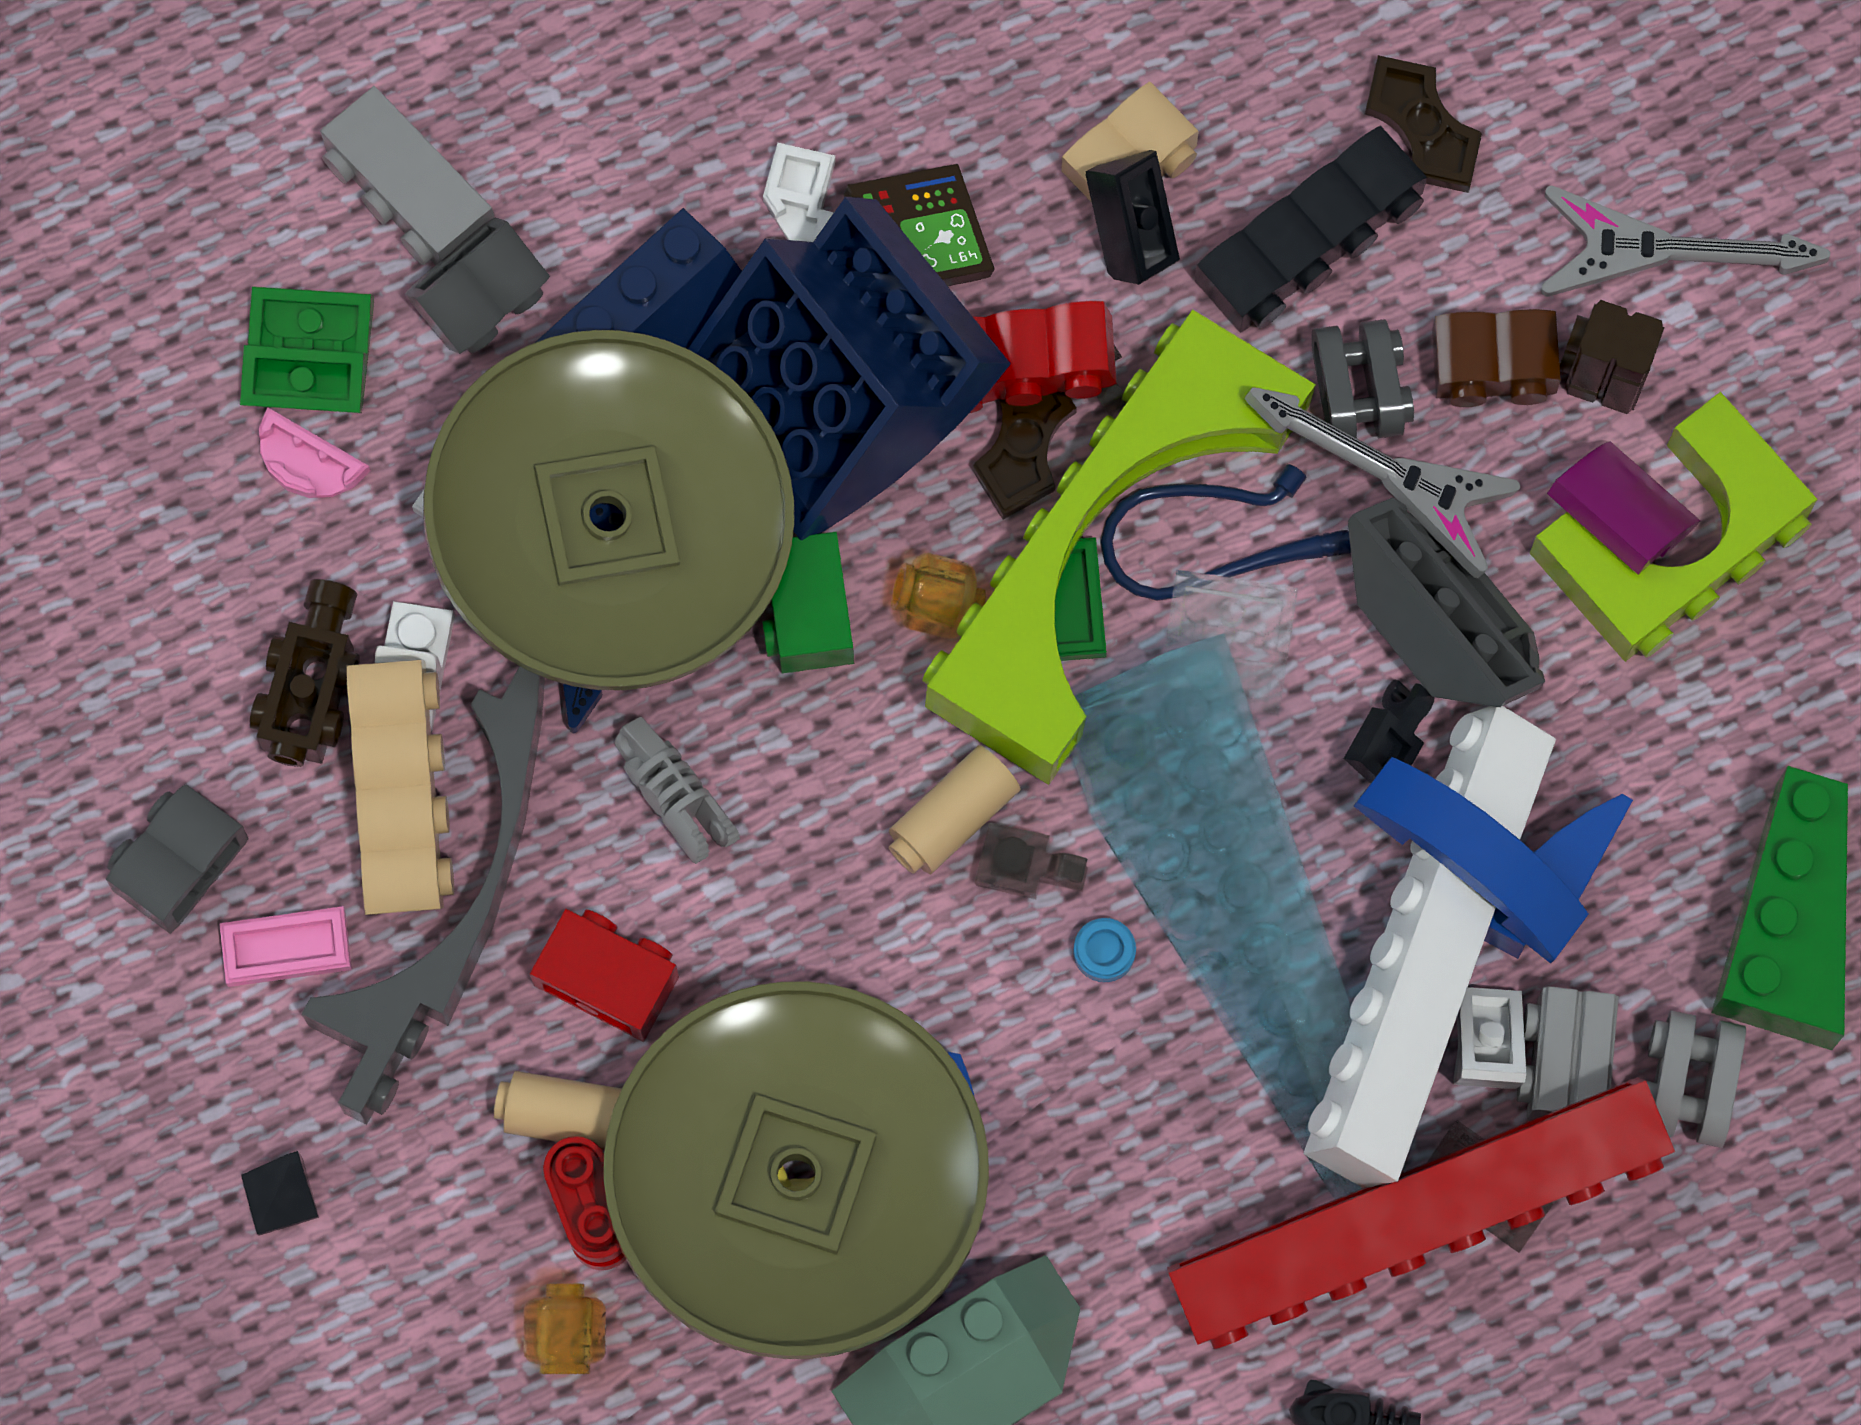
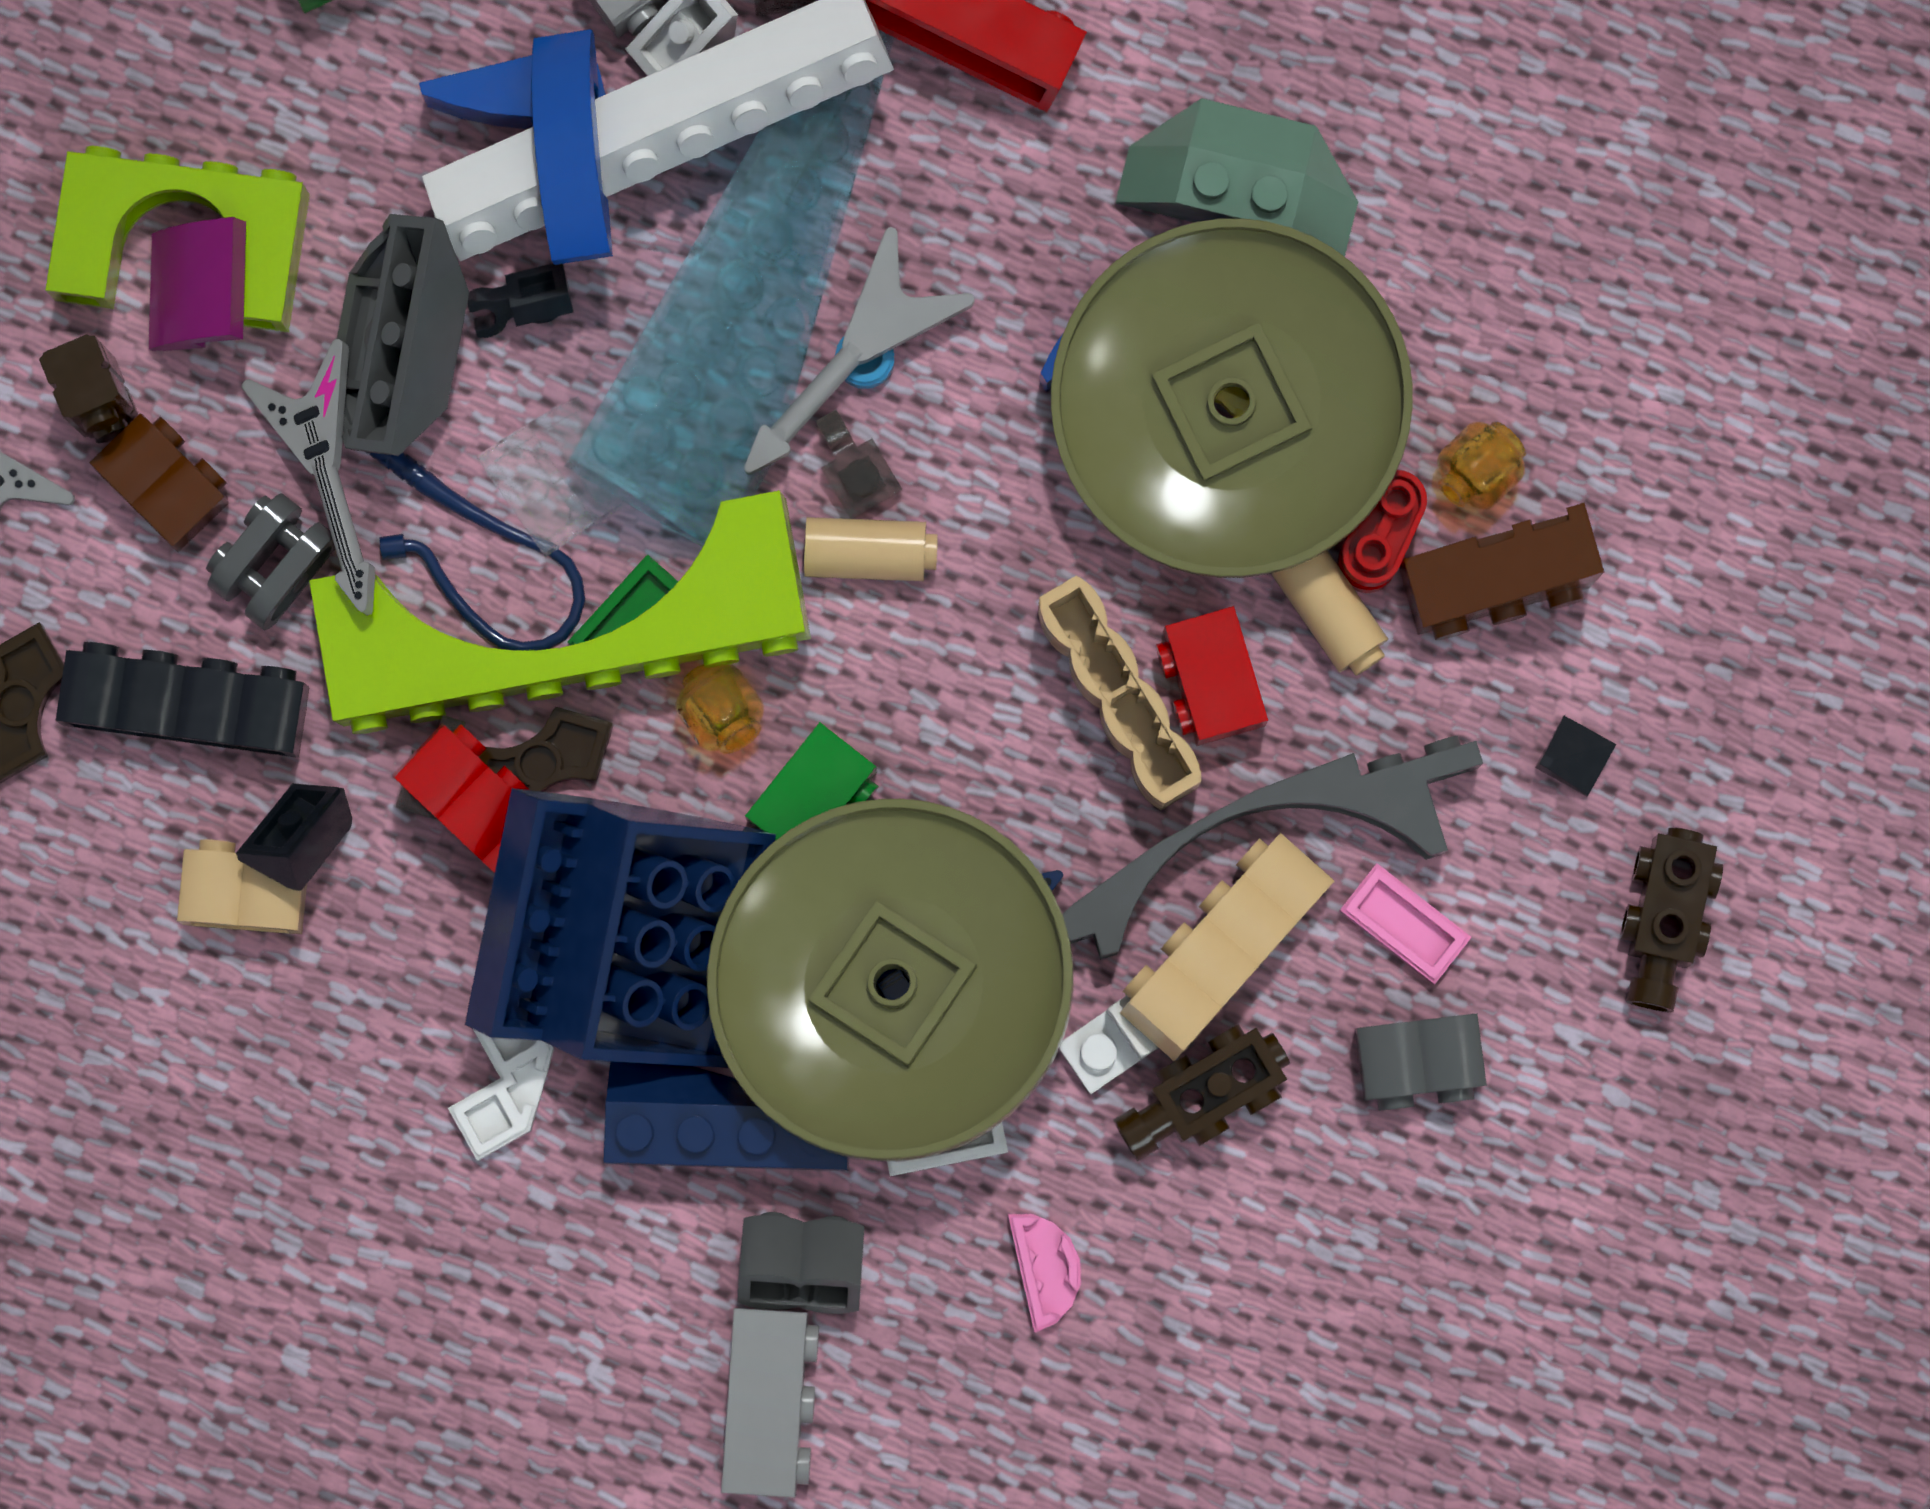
camera: 135 degrees left, 10 degrees up
(95, 1151) = (1669, 897): none -> dark brown brick
(307, 350) = (963, 1350): green slope -> none
(467, 1261) = (1502, 574): none -> reddish brown wedge
(643, 885) = (1109, 679): none -> tan brick
(673, 790) = (1038, 759): light grey hinge -> none
(936, 218) = (433, 987): tile -> none
(1118, 977) = (879, 324): none -> light grey piece

